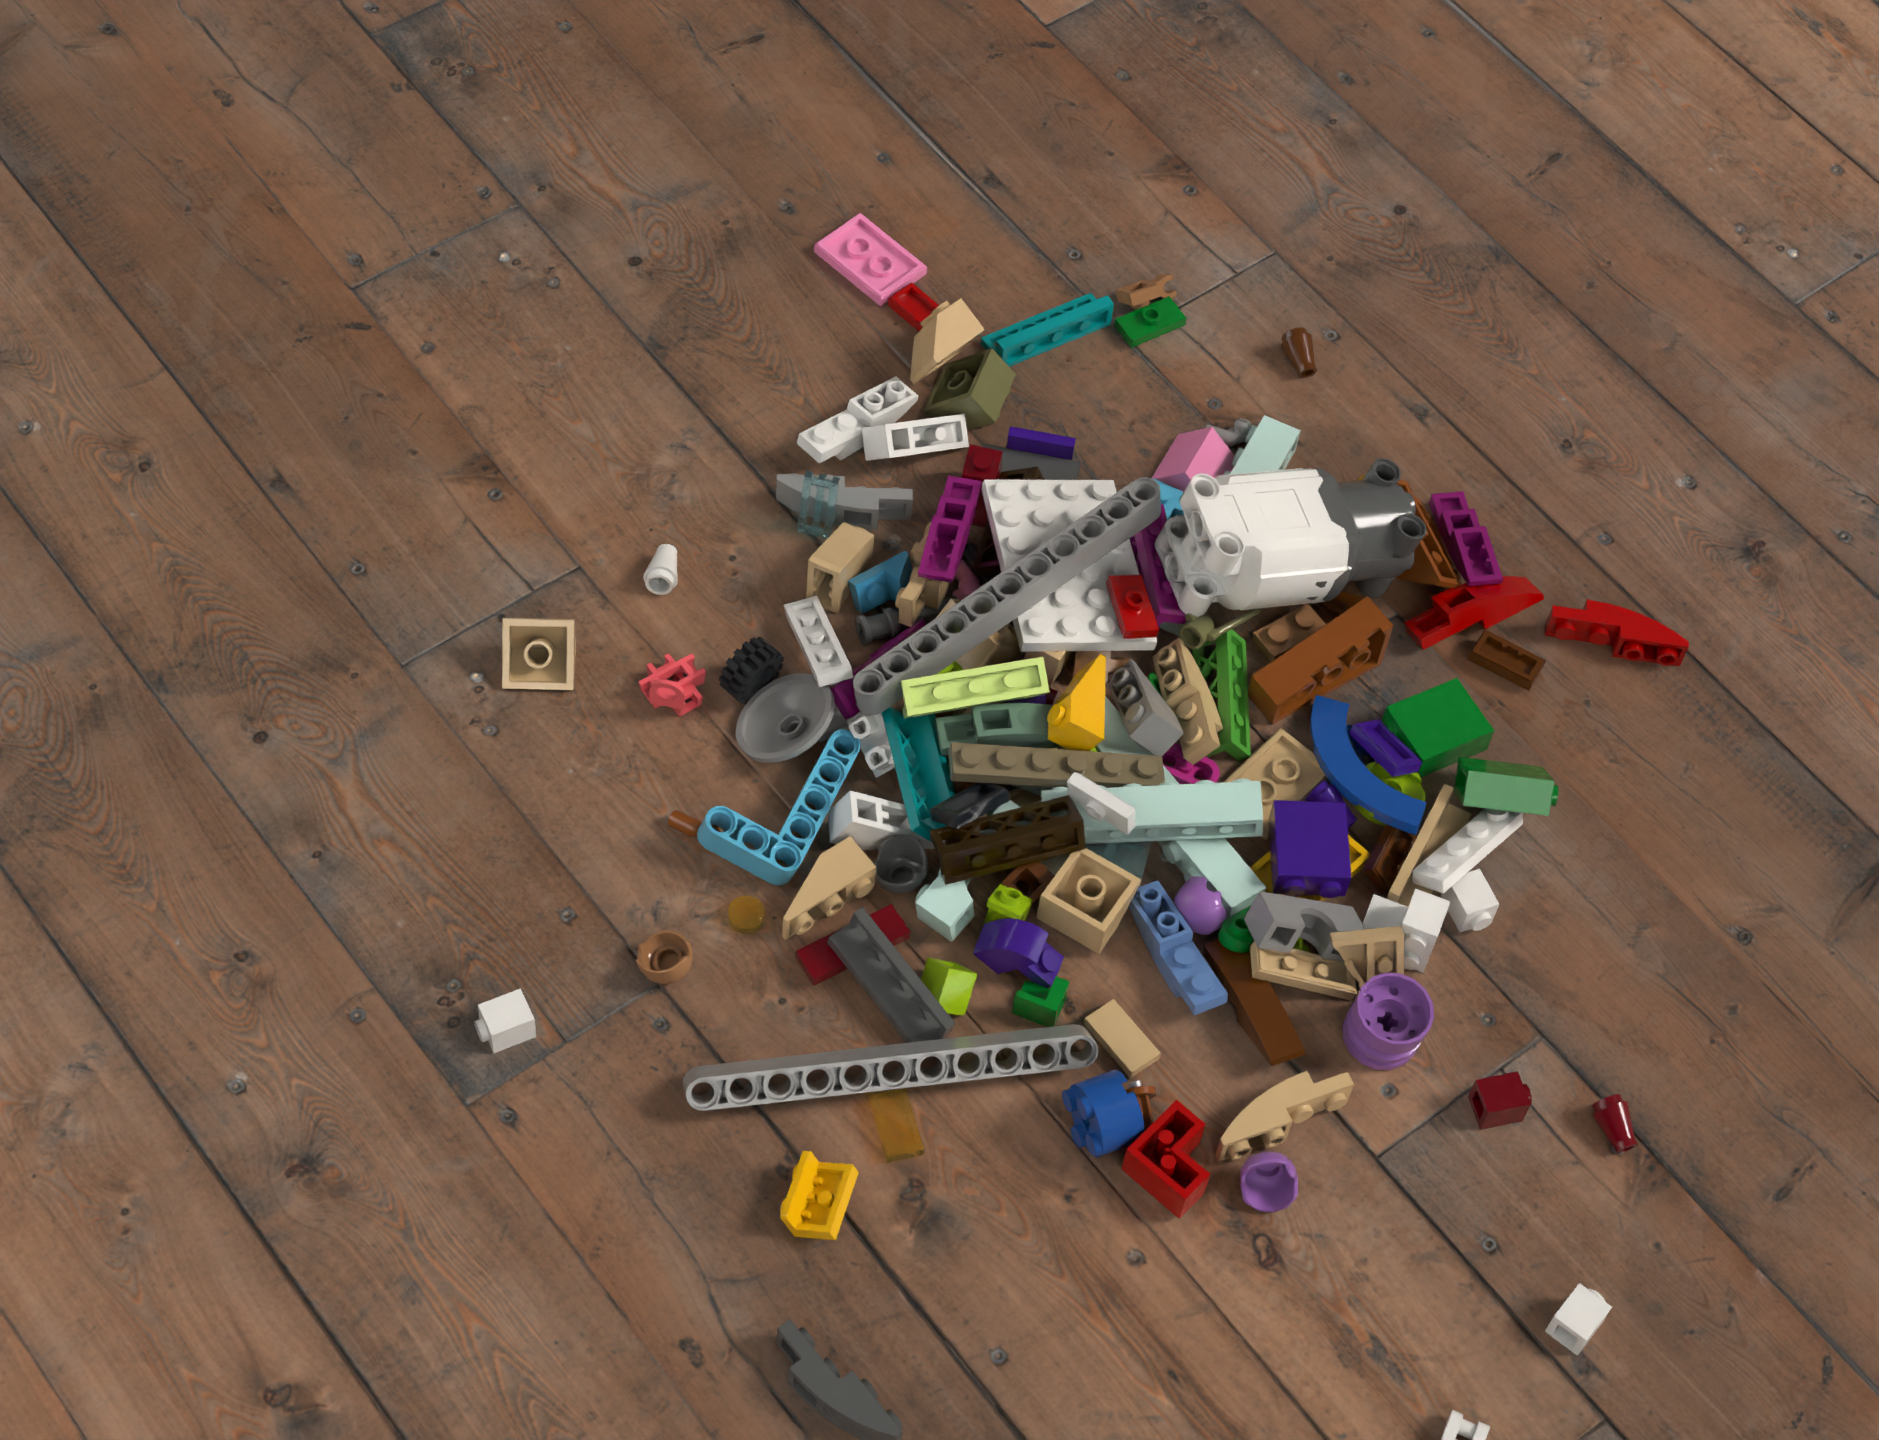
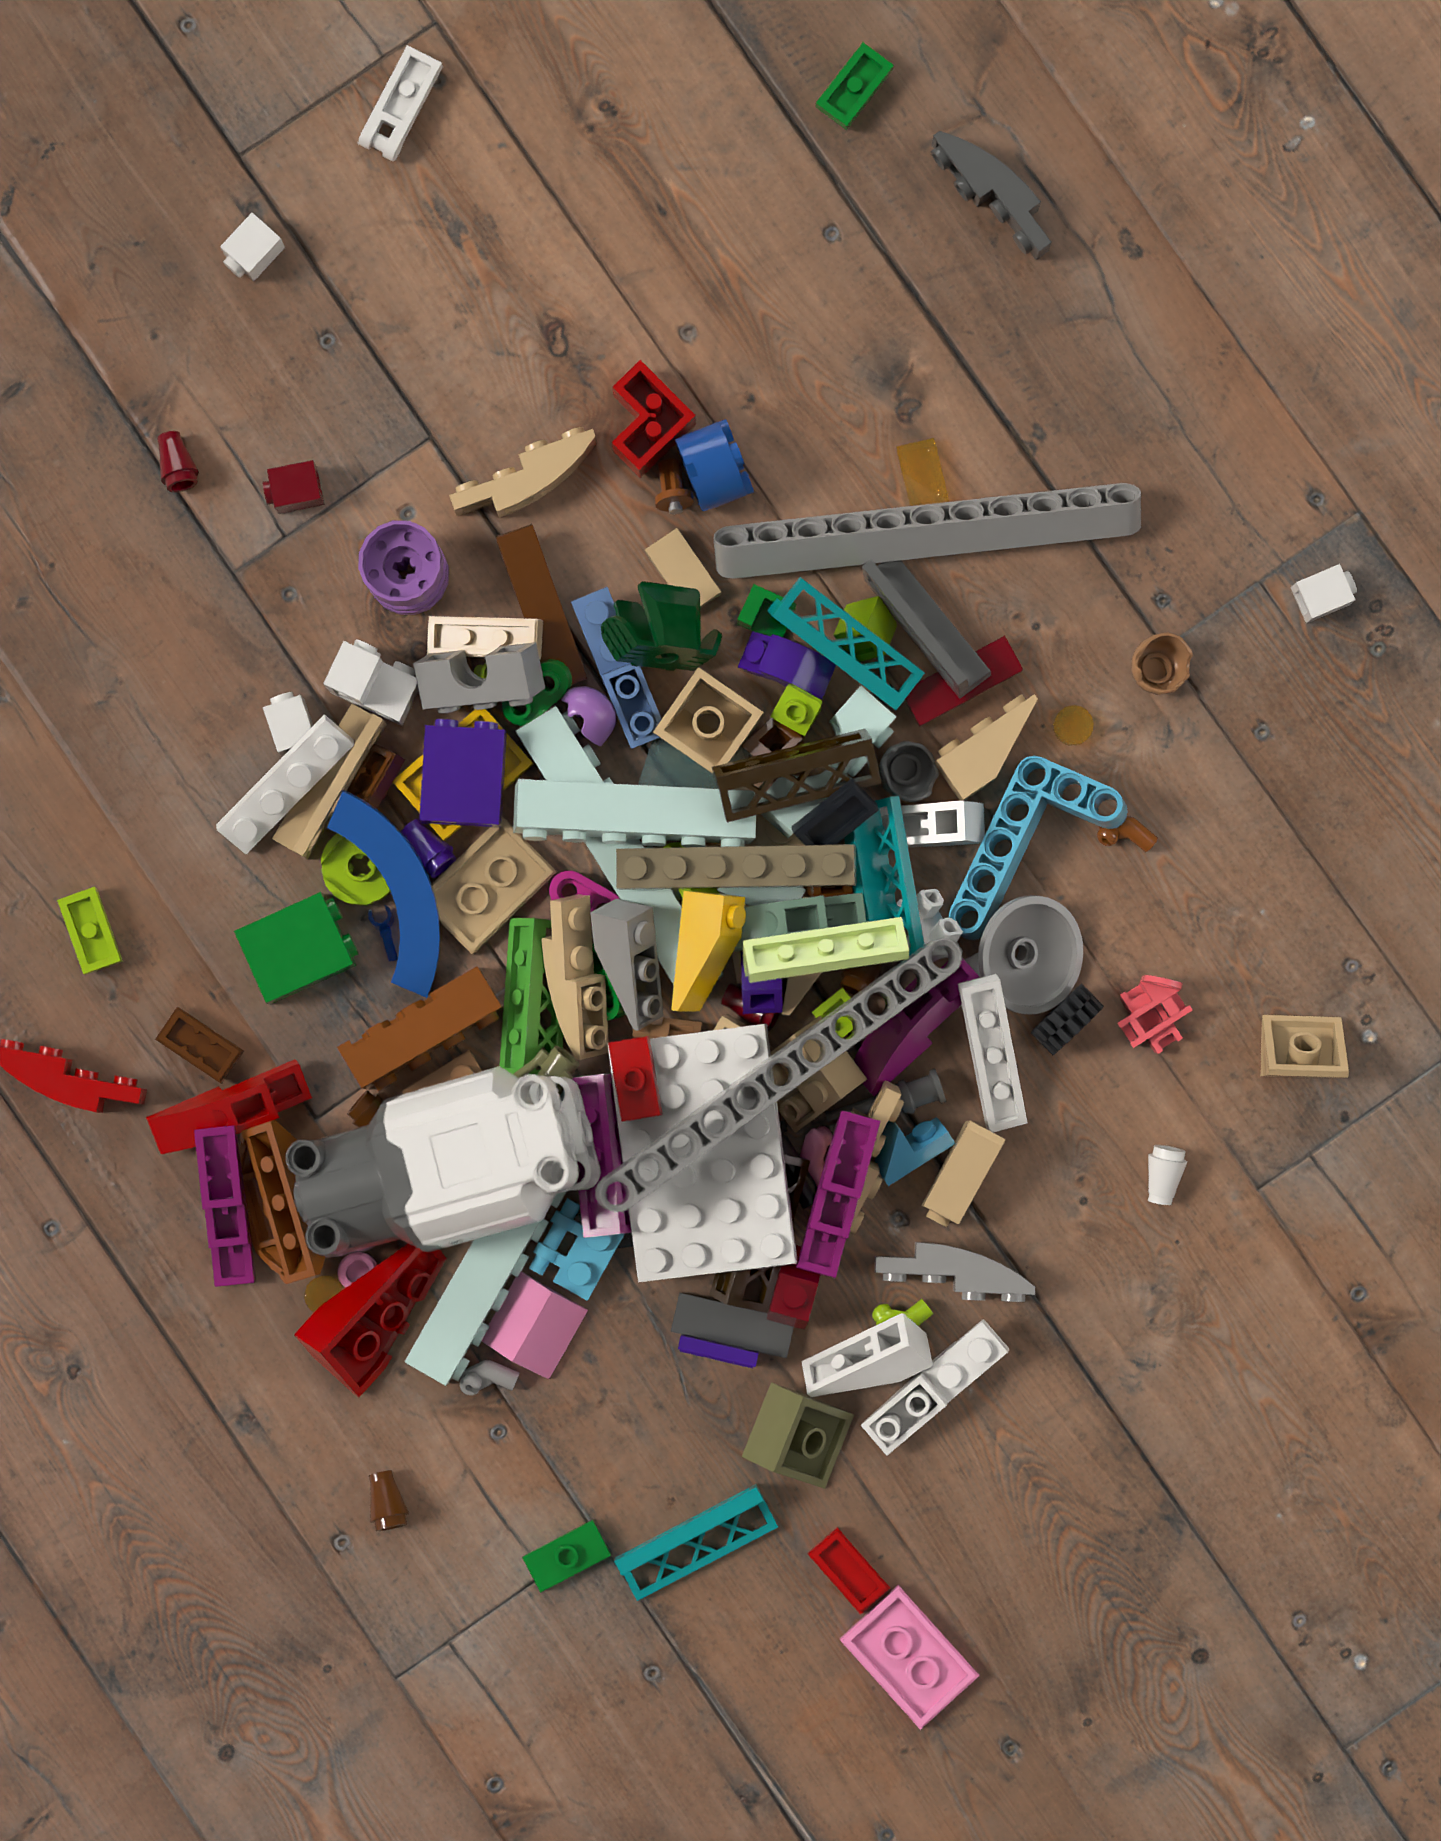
camera: 170 degrees left, 30 degrees up
(817, 1197) = (1006, 390): yellow bracket -> none
(821, 483) = (985, 1253): clear light blue tile -> none
(884, 469) = (917, 1313): none -> lime arm
(942, 337) = (831, 1494): tan slope -> none
(969, 954) = (830, 648): none -> teal fence
(1101, 803) = (694, 801): white plate -> none
(1135, 970) = (664, 627): none -> dark green piece
(1139, 293) = (573, 1597): medium nougat plate -> none
(1268, 1181) = (548, 398): medium lavender hair -> none
(1348, 449) = (362, 1321): none -> red wedge
(1371, 951) = (411, 637): tan wing -> none
(1385, 748) = (359, 914): dark purple tile -> none
(1505, 786) = (233, 855): green brick -> none
(1617, 742) = (90, 930): none -> lime plate

